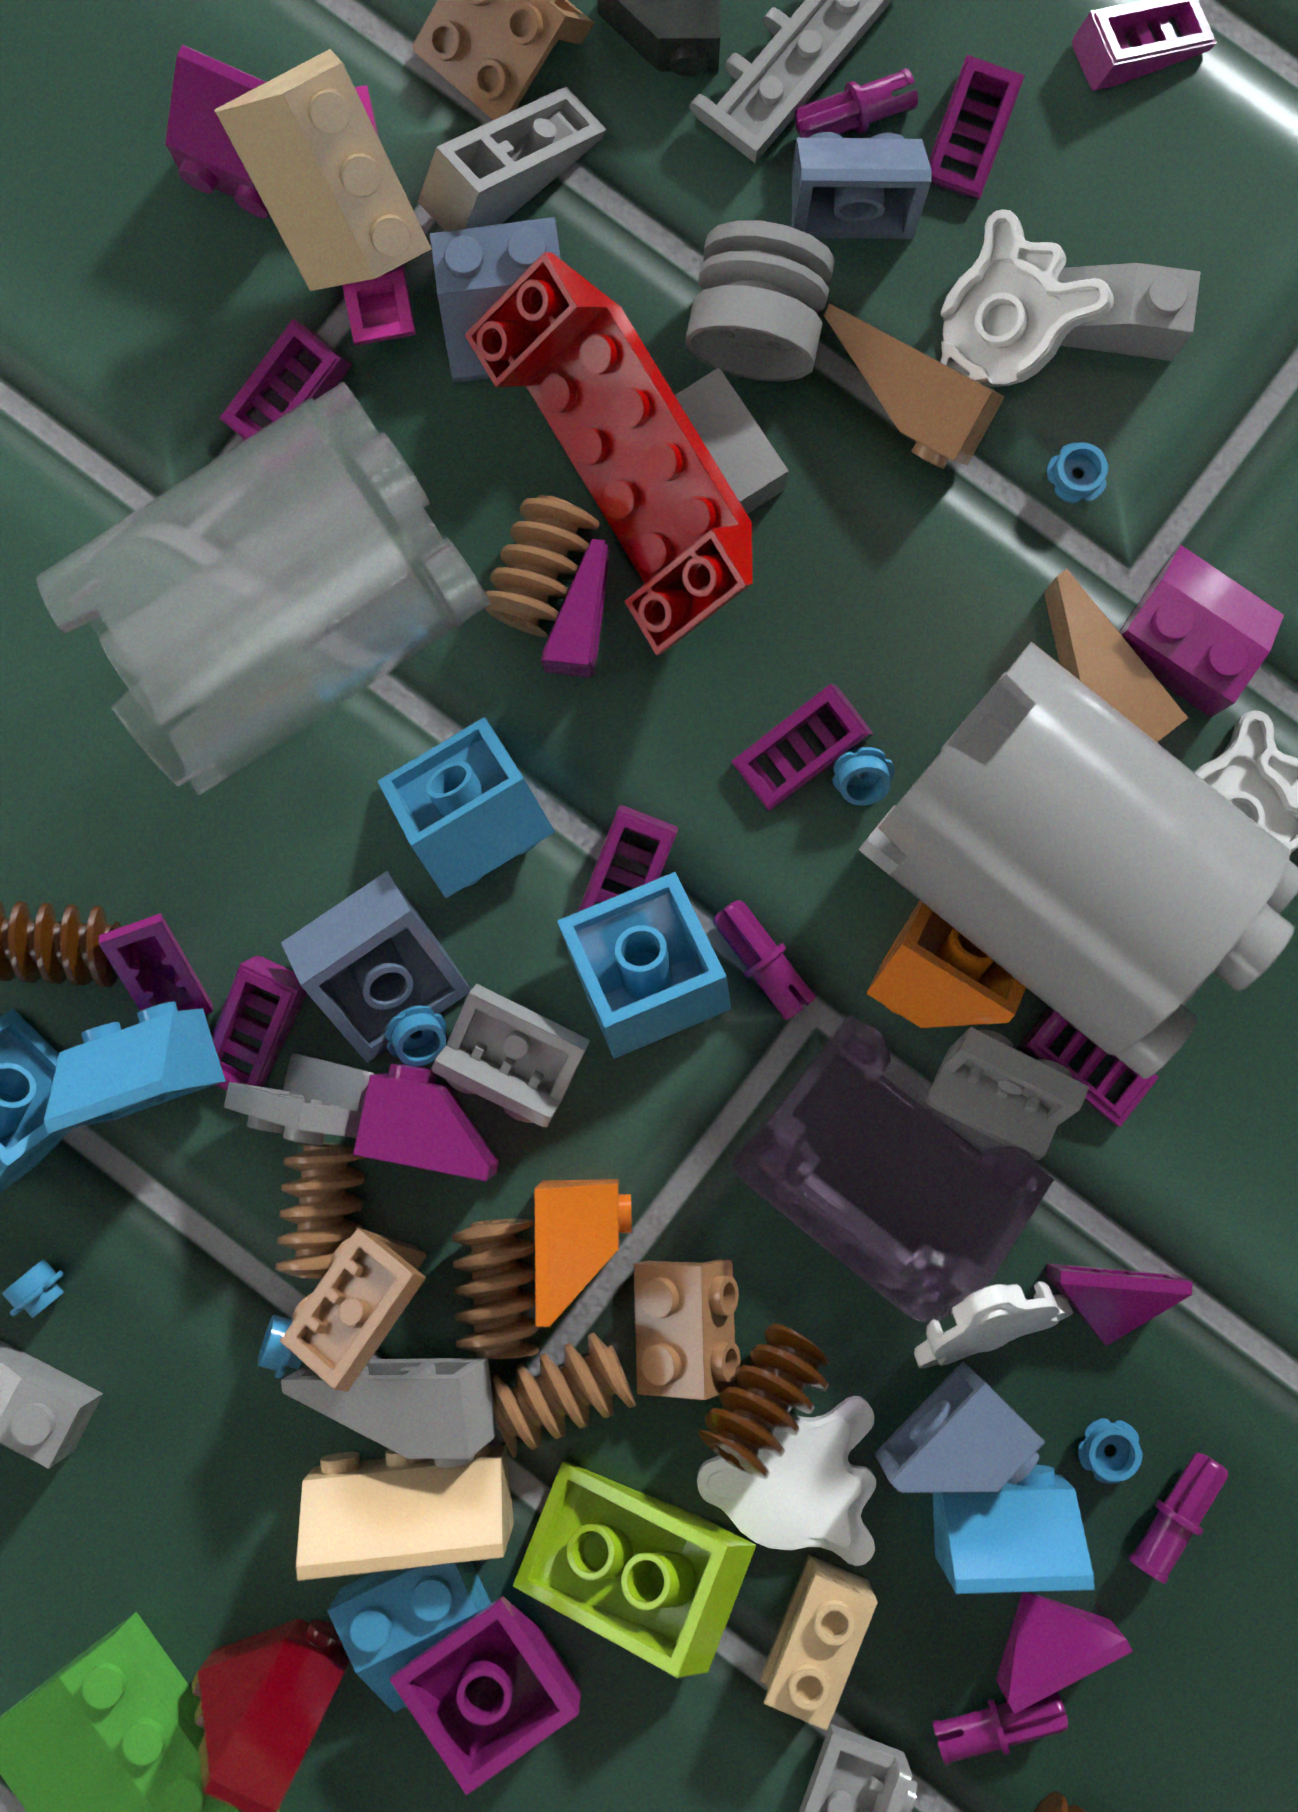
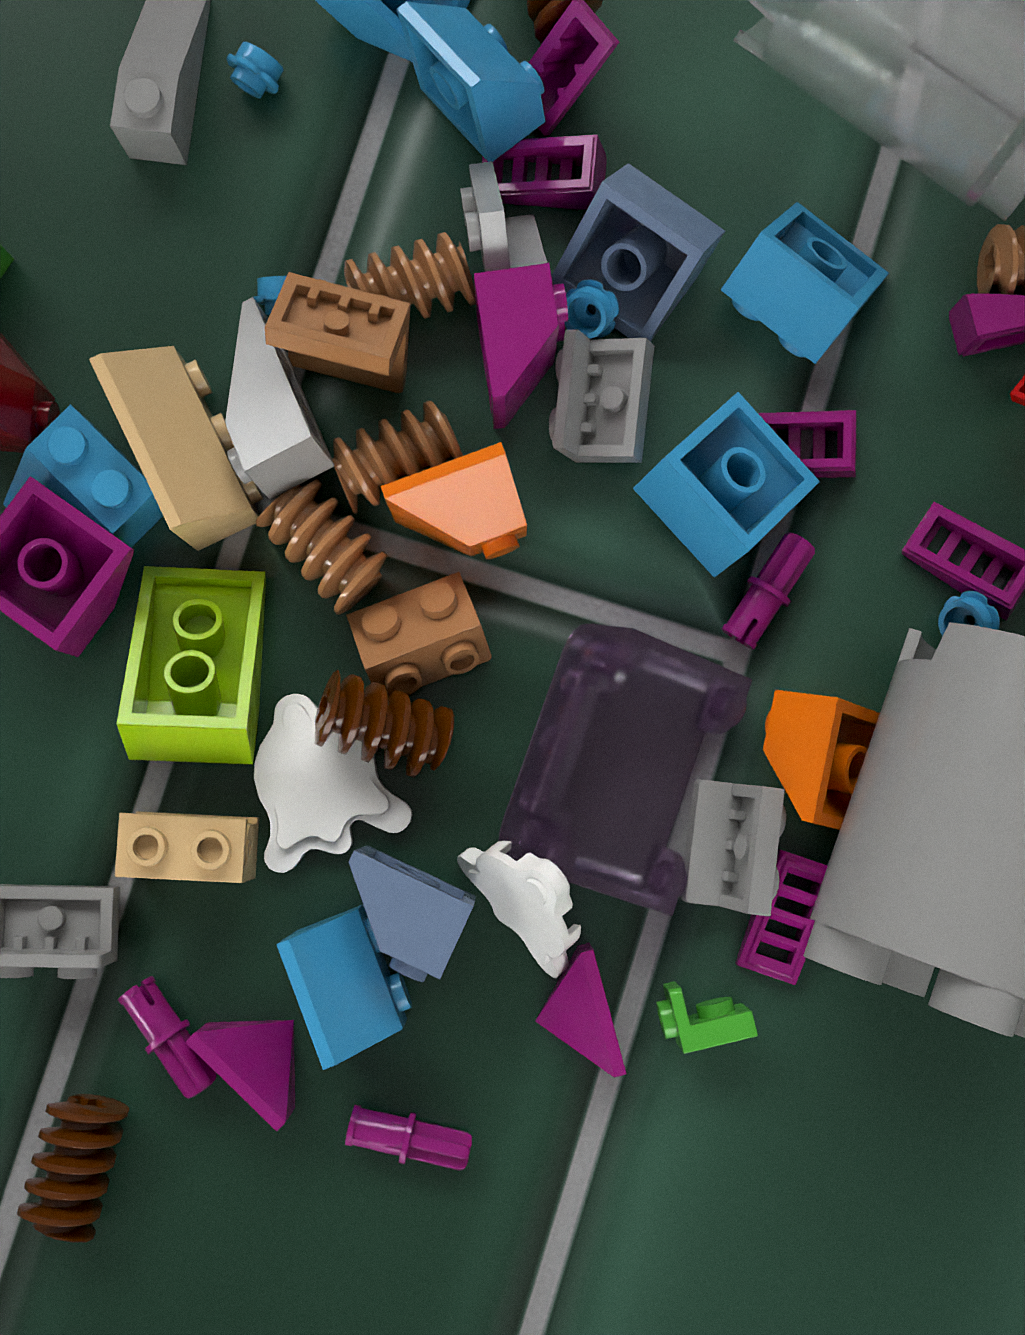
camera: 65 degrees right, 0 degrees up
(1122, 1463) = (439, 1071): dark azure plate -> none
(1172, 1174) = (714, 1024): none -> bright green bracket

